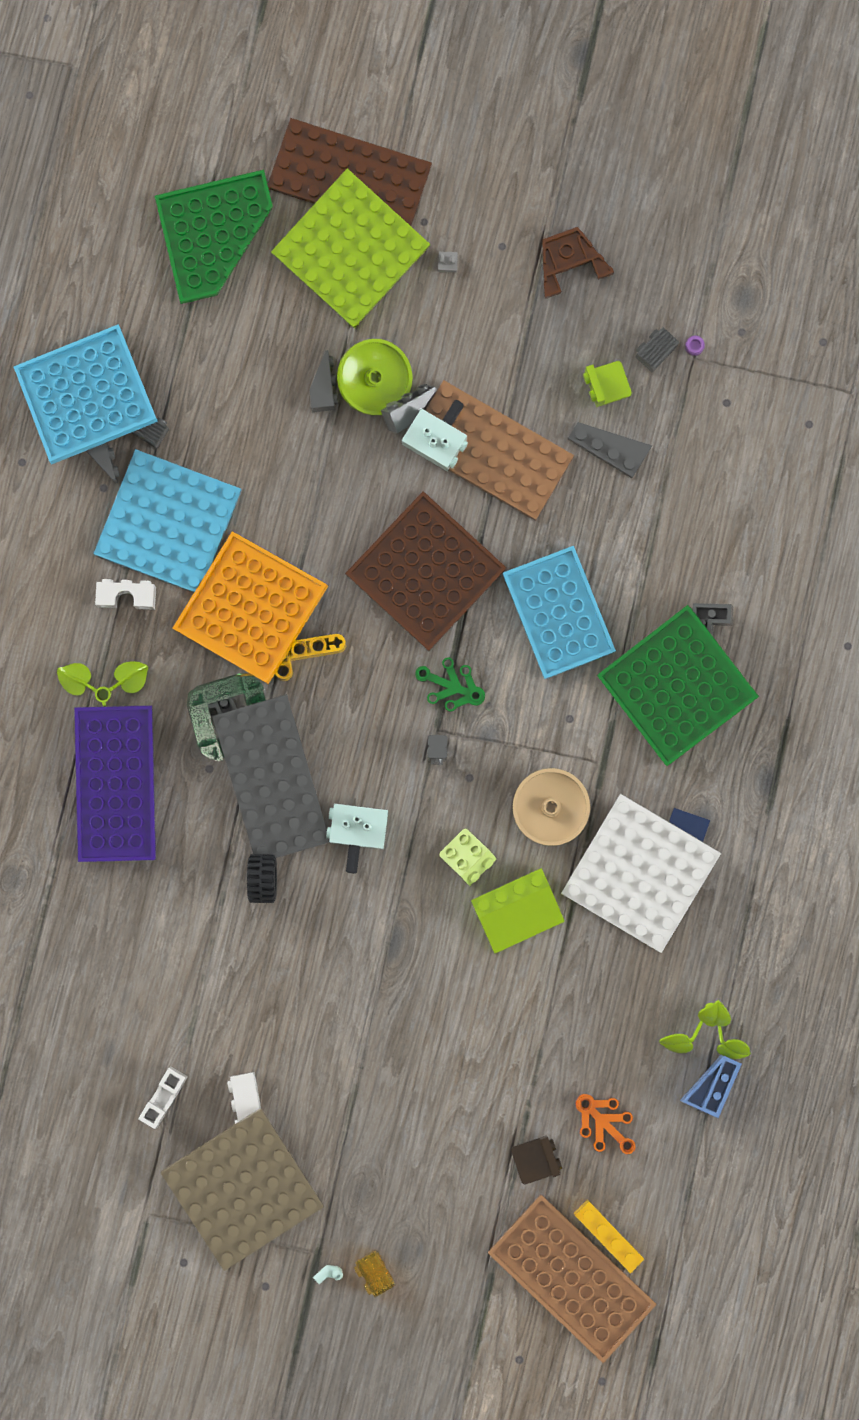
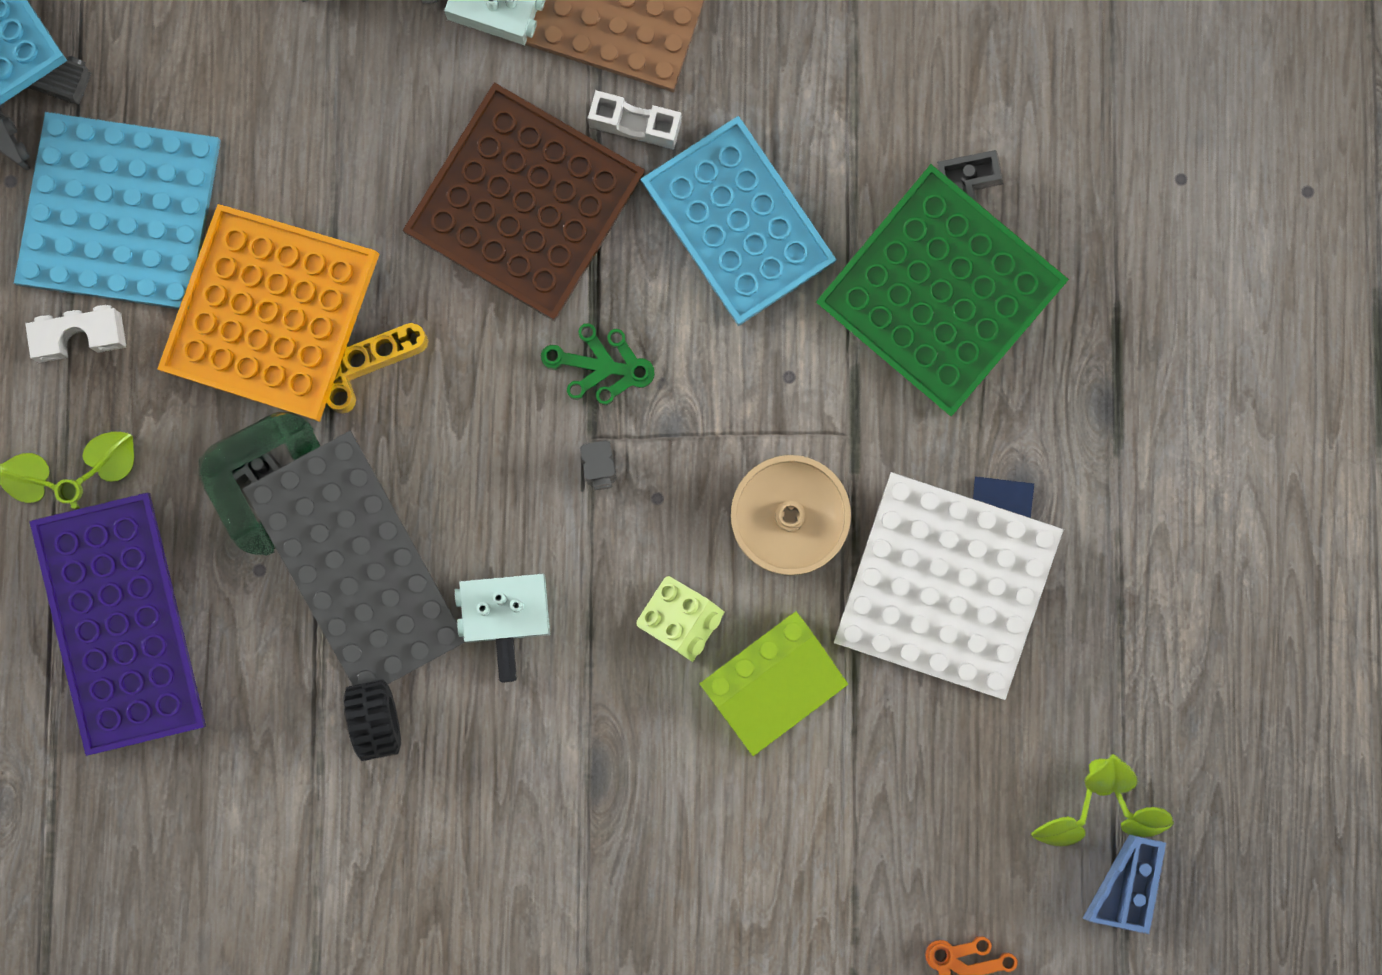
camera: 15 degrees left, 0 degrees up
(514, 539) = (652, 126): none -> white arch

